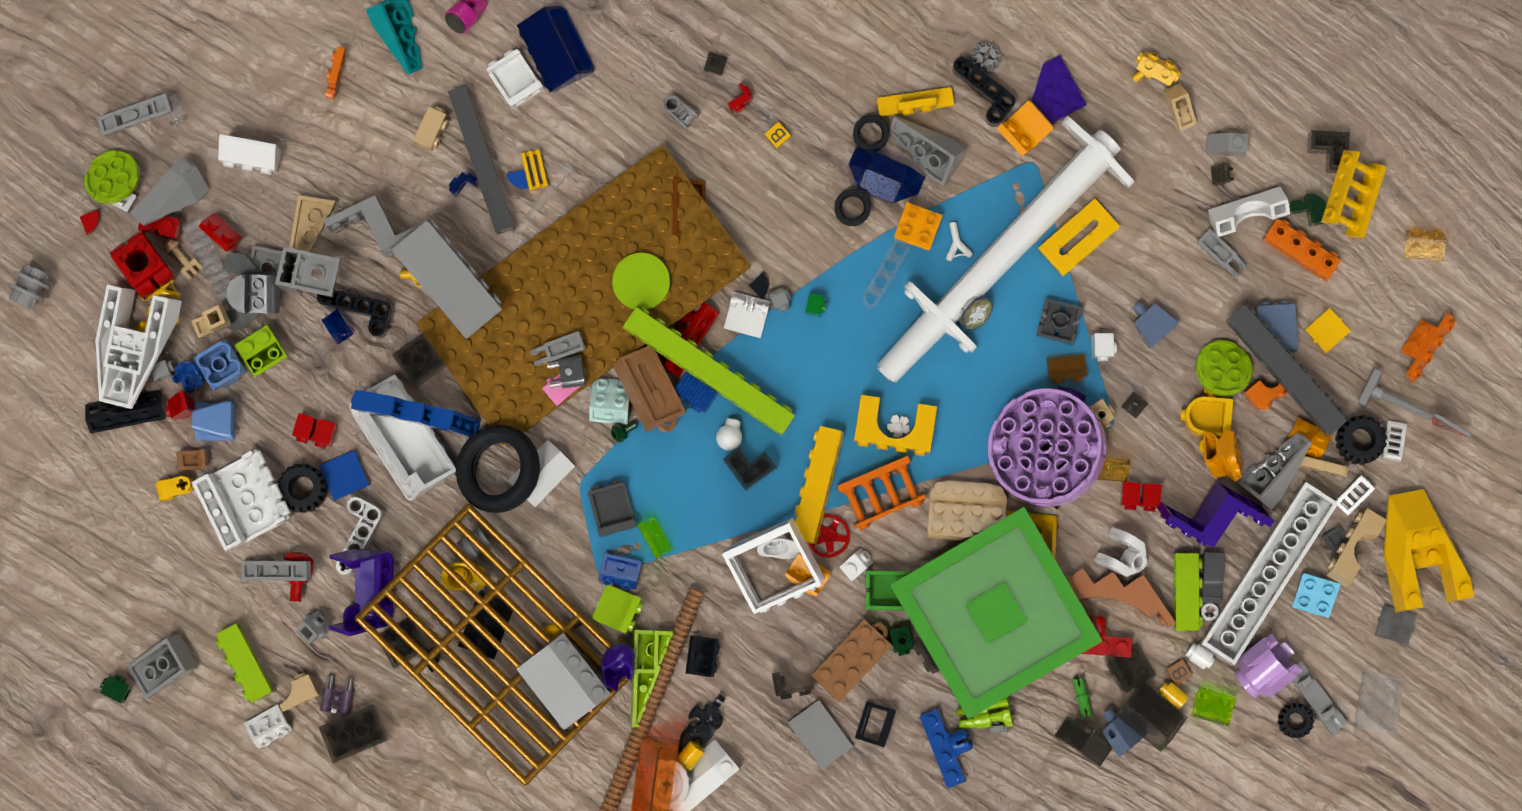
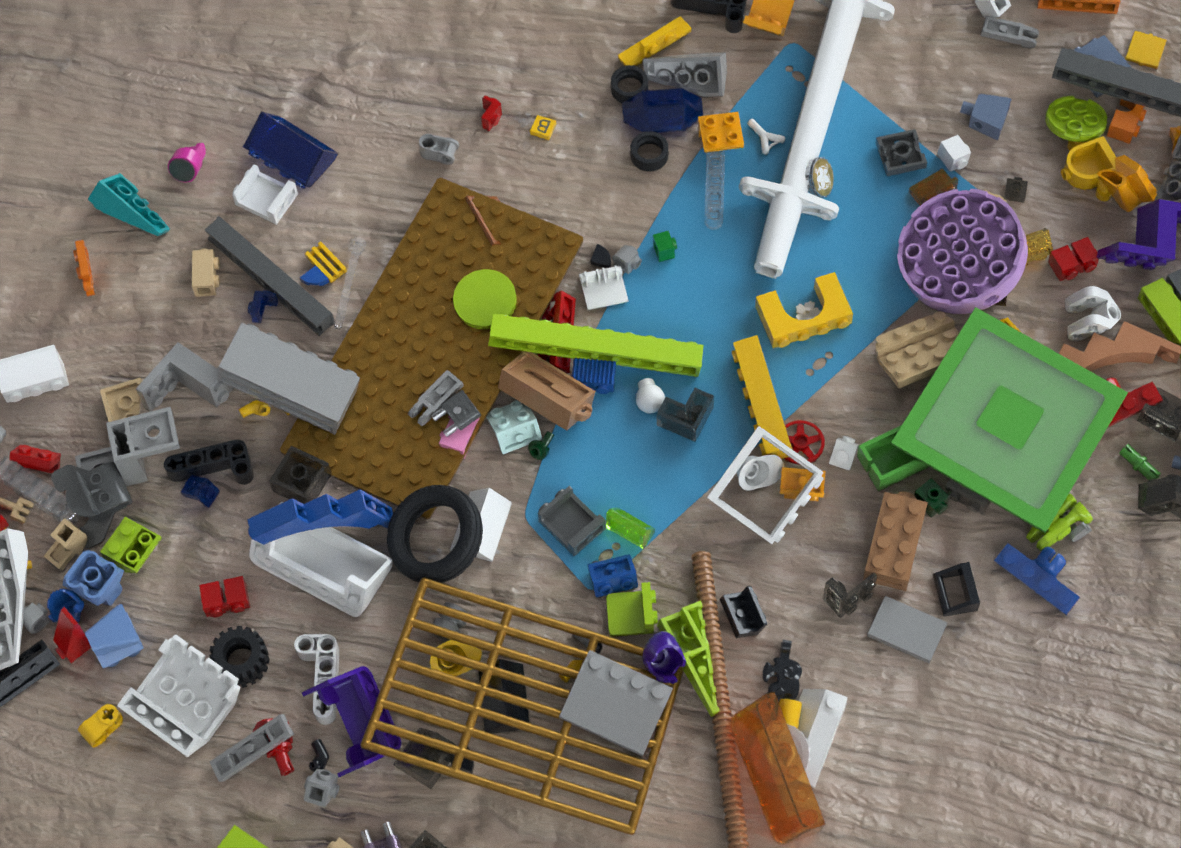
camera: 25 degrees left, 20 degrees down
(191, 460) = (107, 689): medium nougat bracket -> none
(326, 601) = (321, 758): none -> black arm
(344, 475) = (279, 626): blue tile -> none
(715, 64) = (450, 97): clear smoke tile -> none
(883, 474) = (819, 357): orange fence -> none
(1067, 262) = (875, 104): yellow piece -> none

